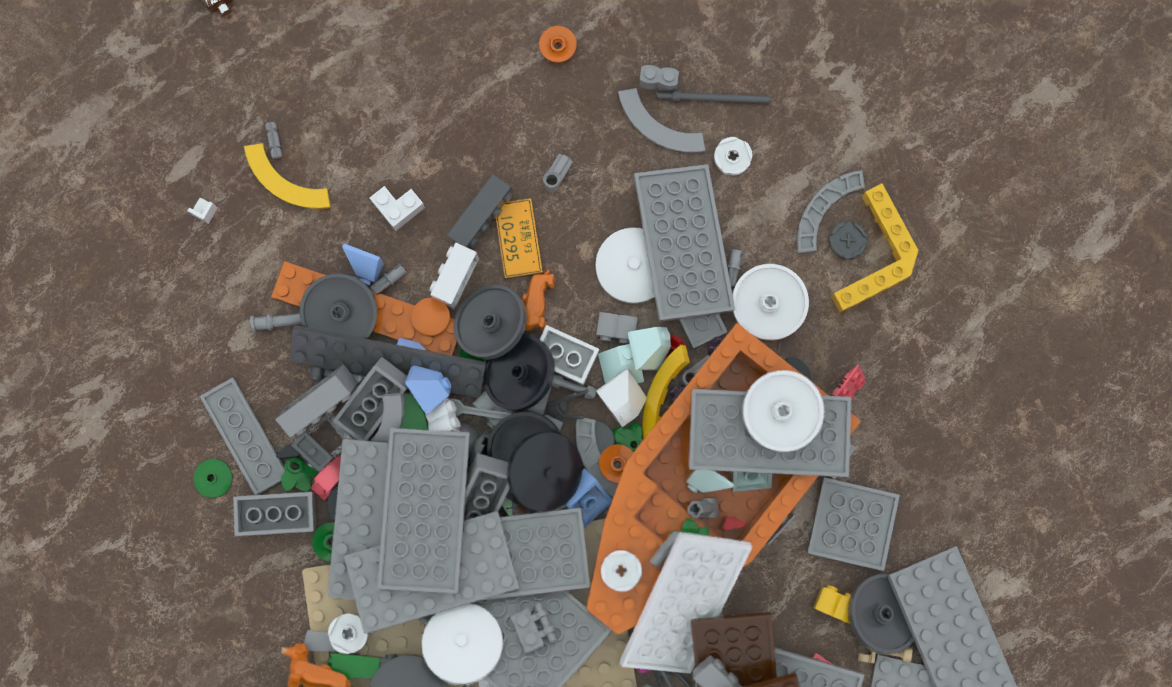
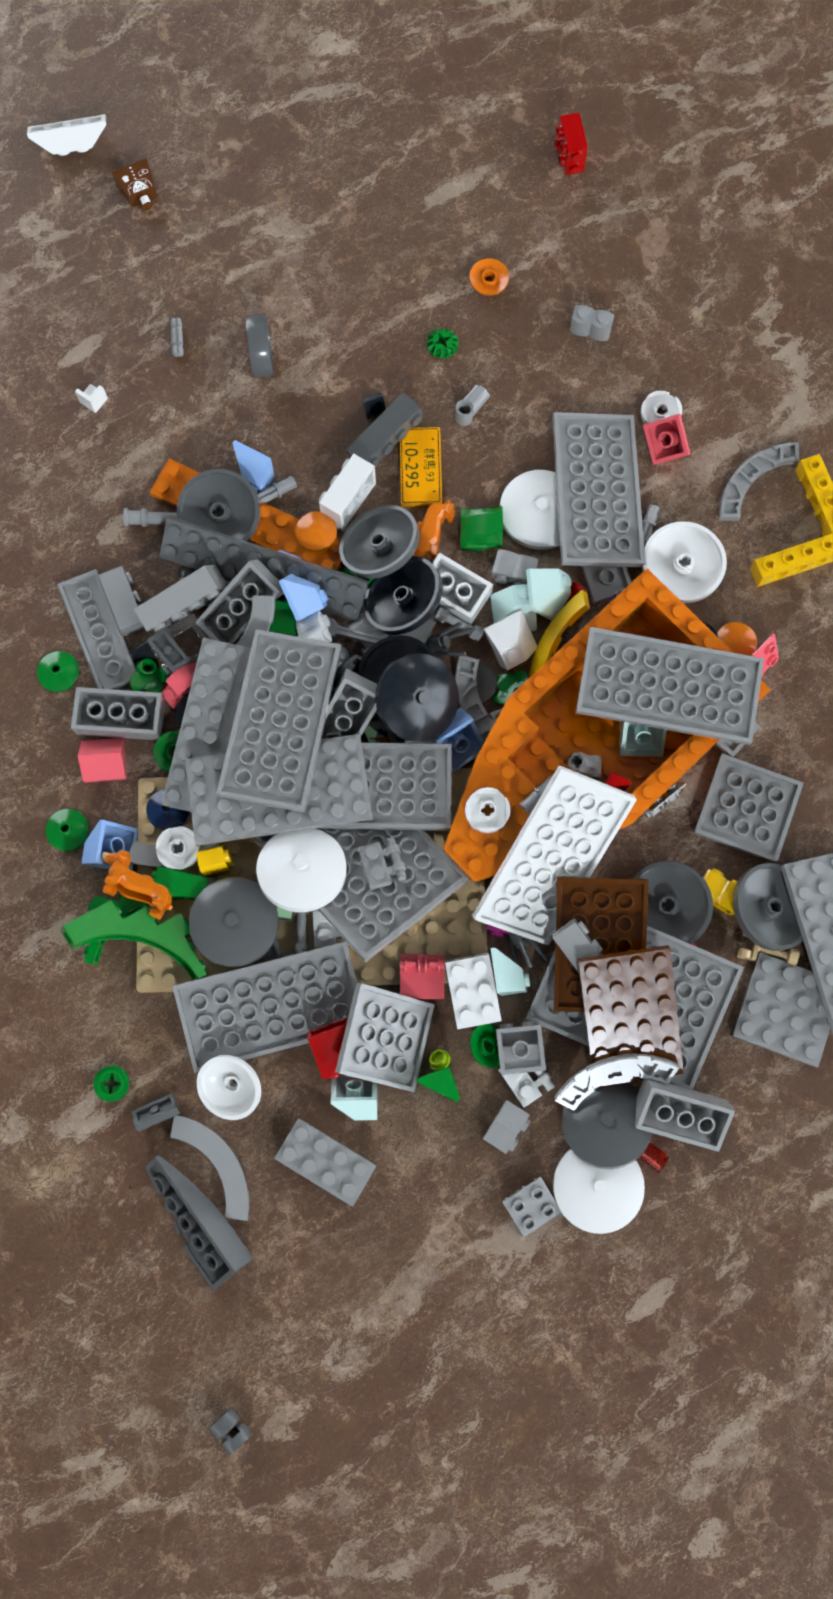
camera: 10 degrees right, 5 degrees down
(254, 625) = (76, 834): none -> green dish
(261, 403) = (122, 599): none -> light grey brick
(267, 556) = (102, 760): none -> coral slope
(279, 186) = (177, 385): yellow tile -> none
(284, 633) = (108, 838): none -> light blue slope
(325, 604) = (164, 819): none -> dark blue dish
(353, 145) = (259, 345): none -> dark grey piece
(382, 641) = (214, 860): none -> yellow brick
(397, 211) = (297, 421): white brick -> none
(467, 185) = (373, 405): none -> black tile
(520, 122) = (439, 350): none -> green gear
(581, 292) = (481, 529): none -> green slope
(609, 456) = (490, 700): orange dish -> none
(656, 132) = (581, 377): light grey tile -> none
(676, 96) = (608, 344): dark grey bar -> none
(707, 481) = (594, 736): light aqua slope -> none
(740, 185) = (666, 439): none -> coral slope
(783, 411) = (688, 659): white dish -> none
(798, 619) = (677, 900): none -> dark grey dish
(826, 369) = (738, 638): none -> orange dish
(848, 240) = (775, 512): dark grey tile -> none

